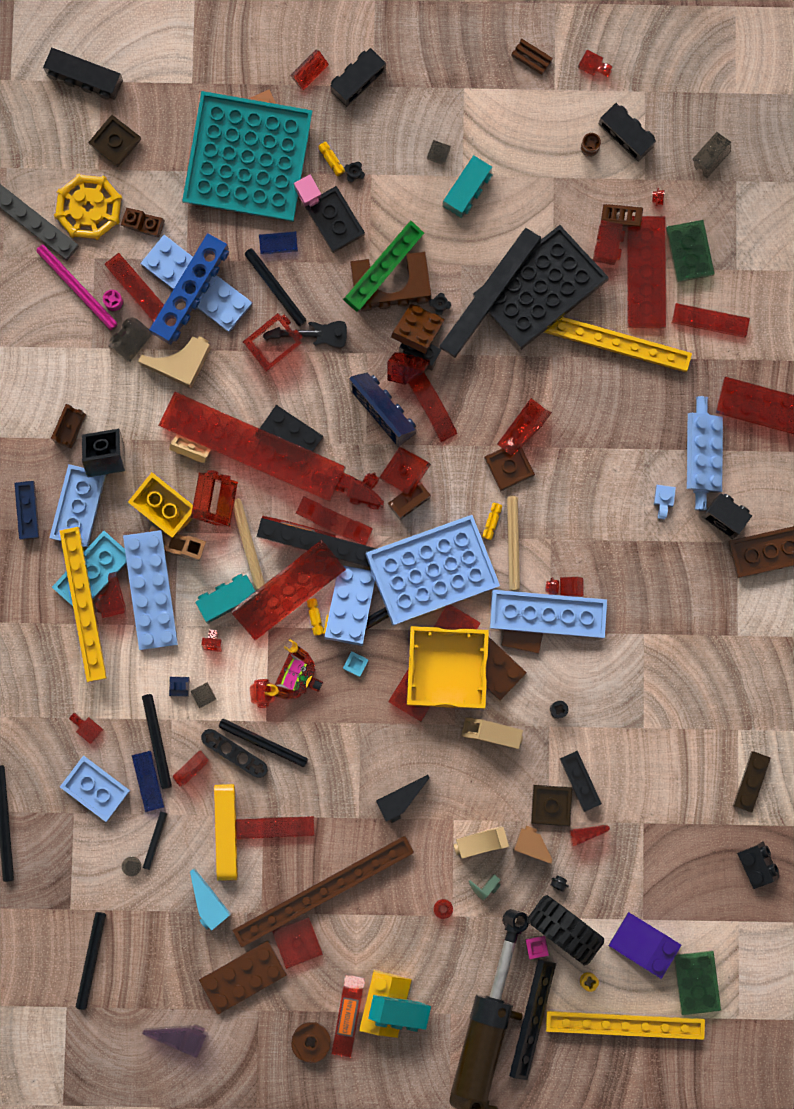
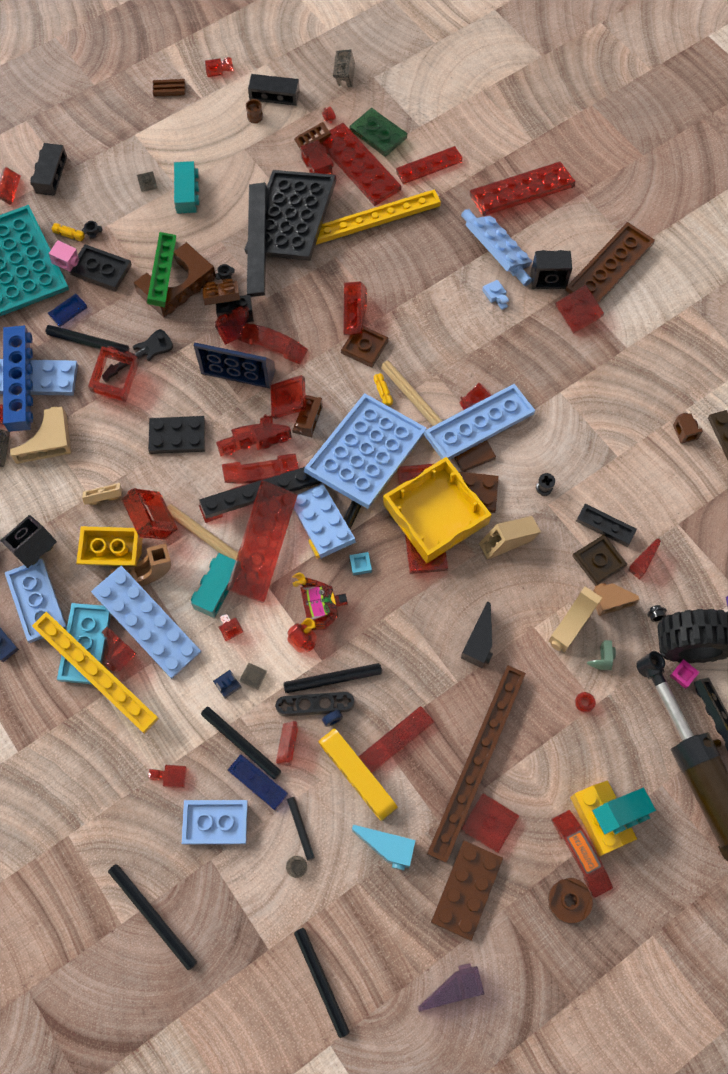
camera: 35 degrees left, 15 degrees down
(238, 775) = (332, 718): none -> dark blue tile
(252, 446) = (151, 456): clear red plate -> none
(315, 617) = (300, 550): yellow axle -> none
(721, 748) = (687, 428): none -> reddish brown brick
(722, 570) = (579, 309): none -> clear red plate

